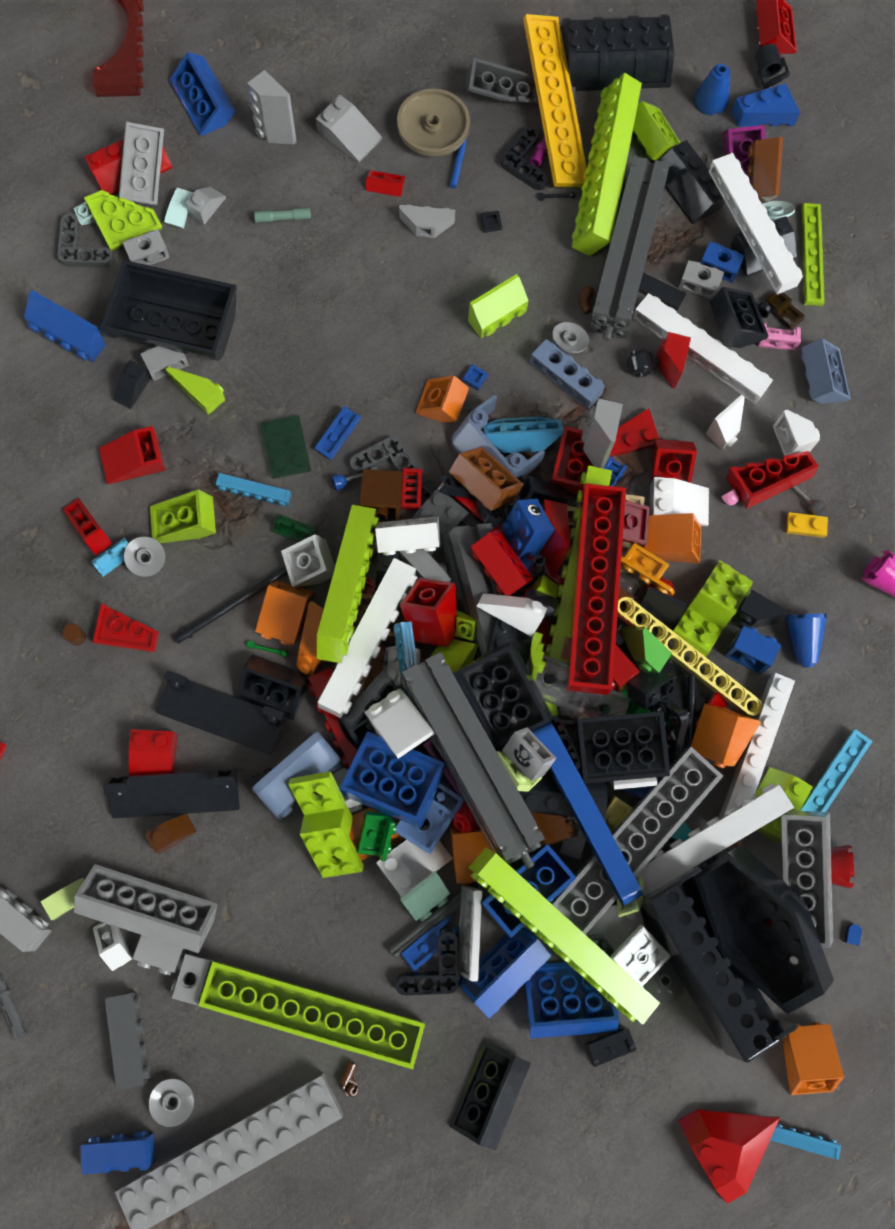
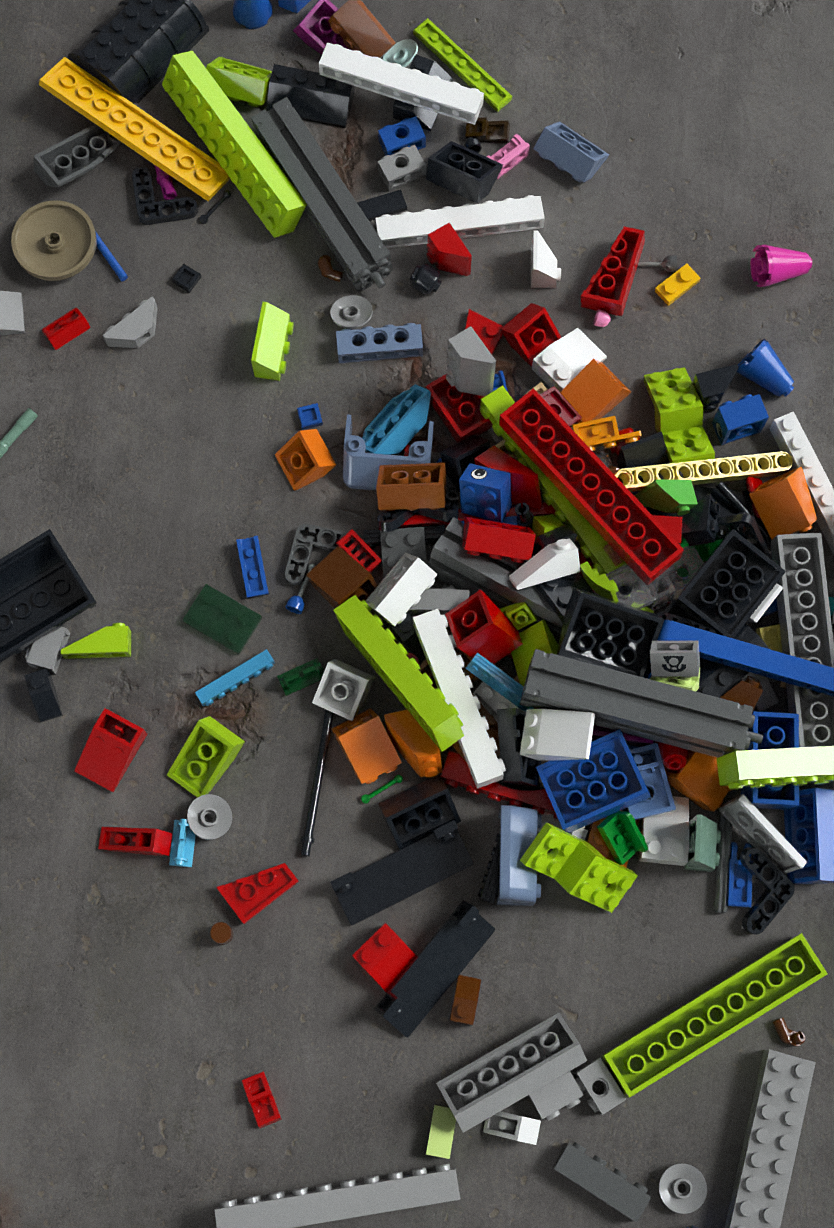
camera: 40 degrees left, 0 degrees up
(795, 433) = (600, 222): white slope -> none

